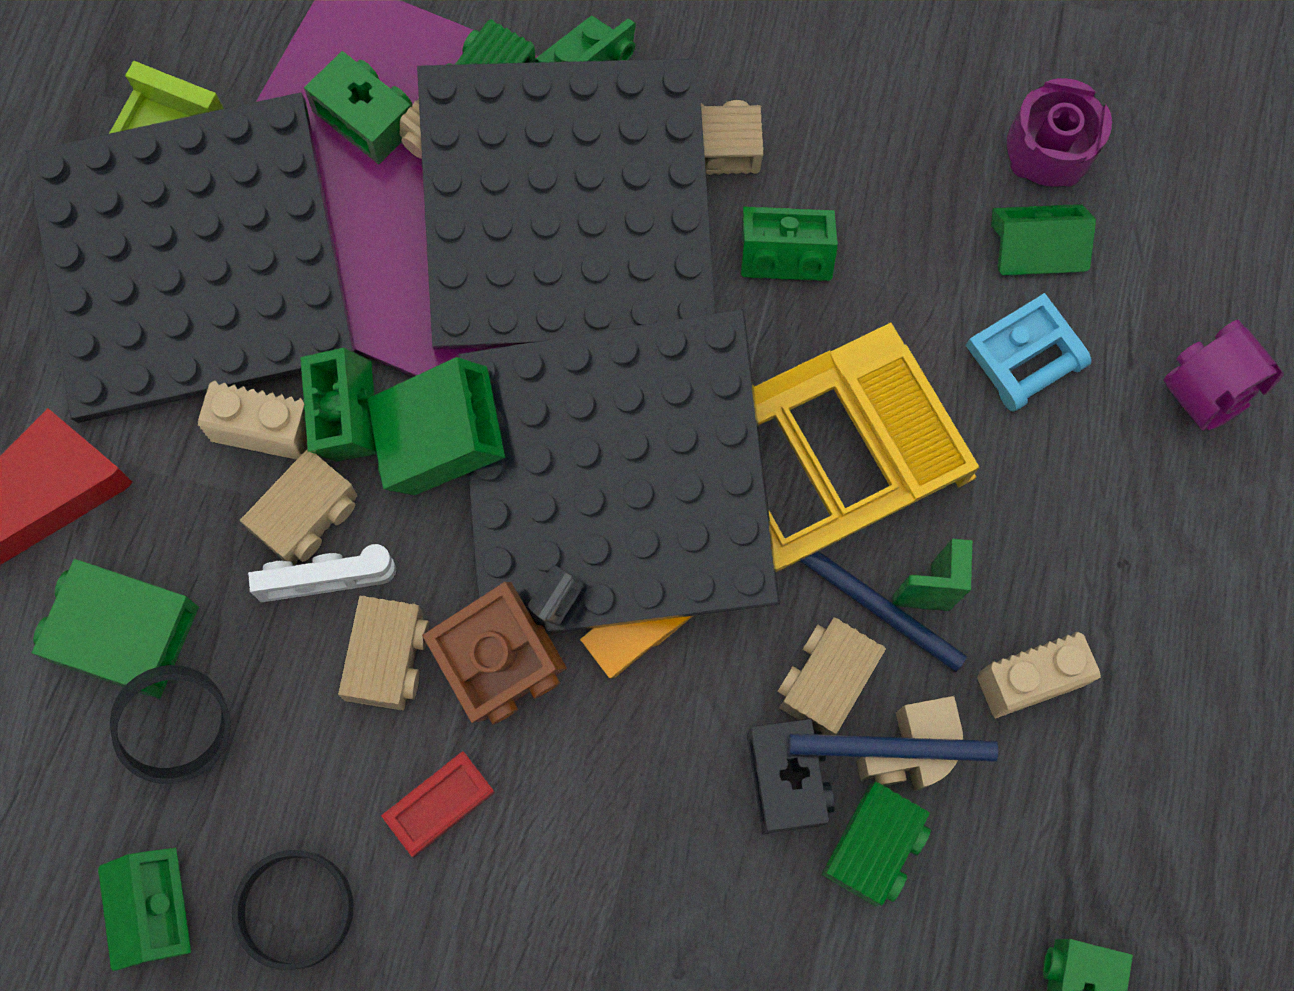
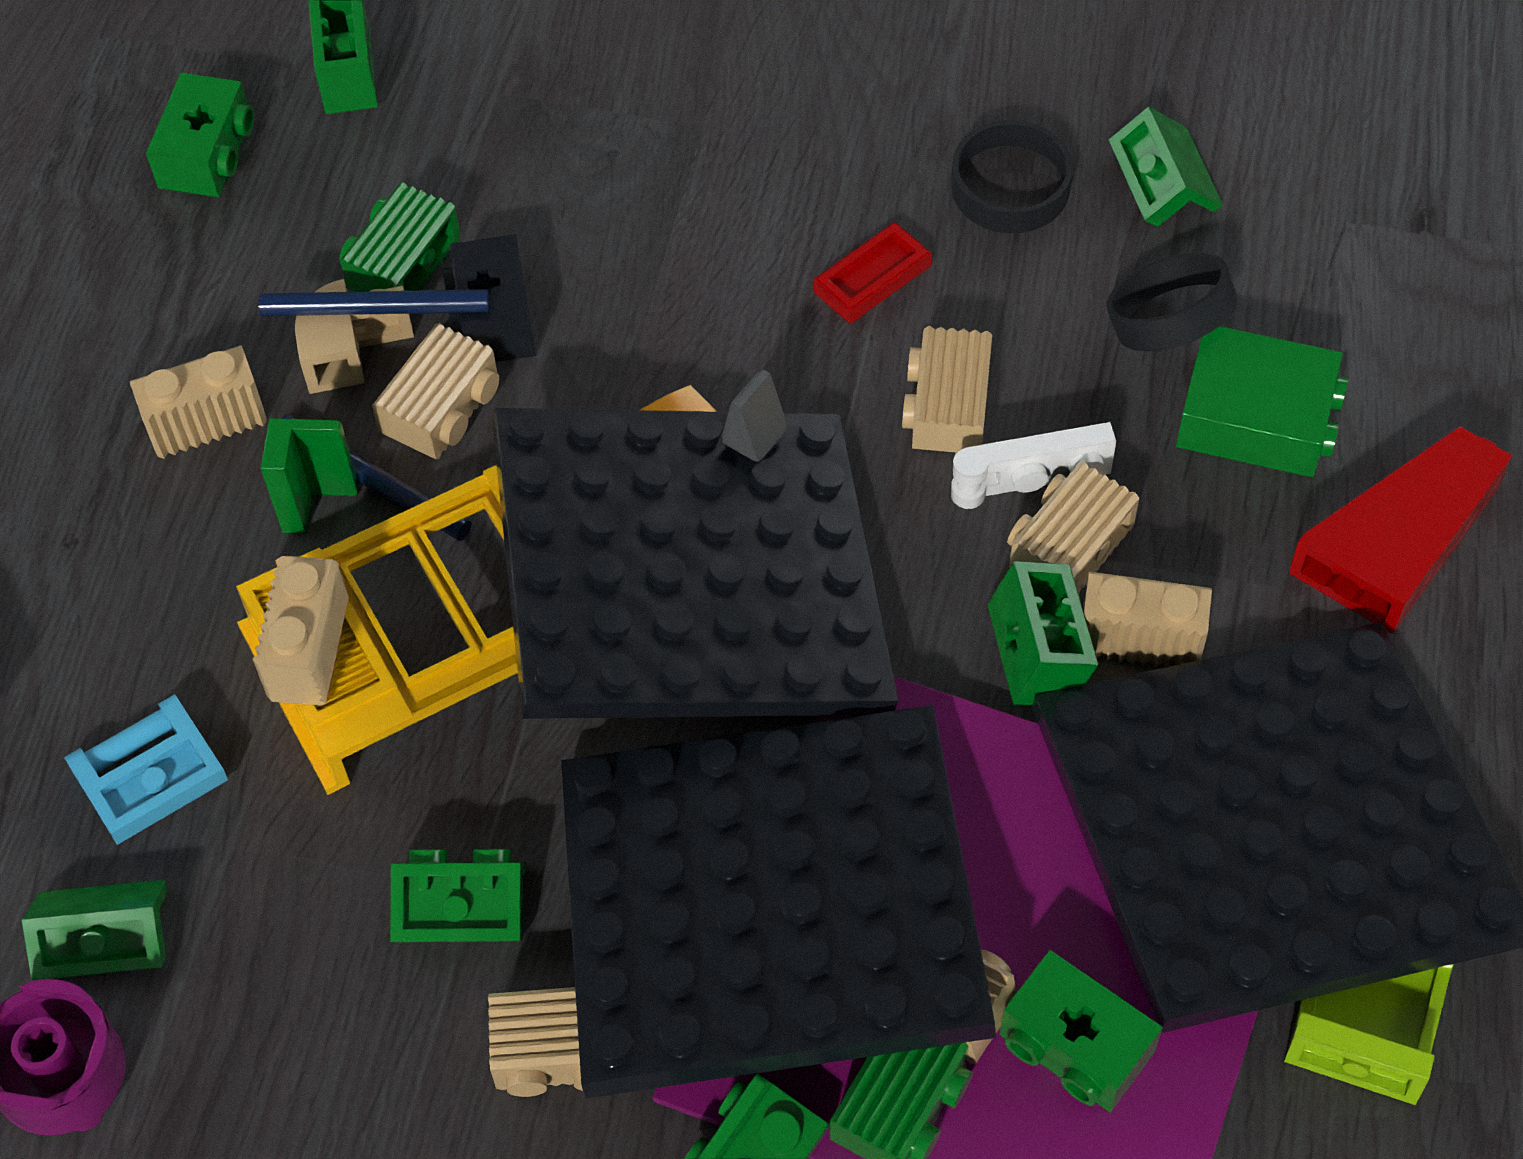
camera: 175 degrees left, 15 degrees down
(435, 427) = (915, 601): green brick -> none
(495, 655) = (823, 376): dark orange plate -> none
(921, 398) = (301, 630): none -> tan brick

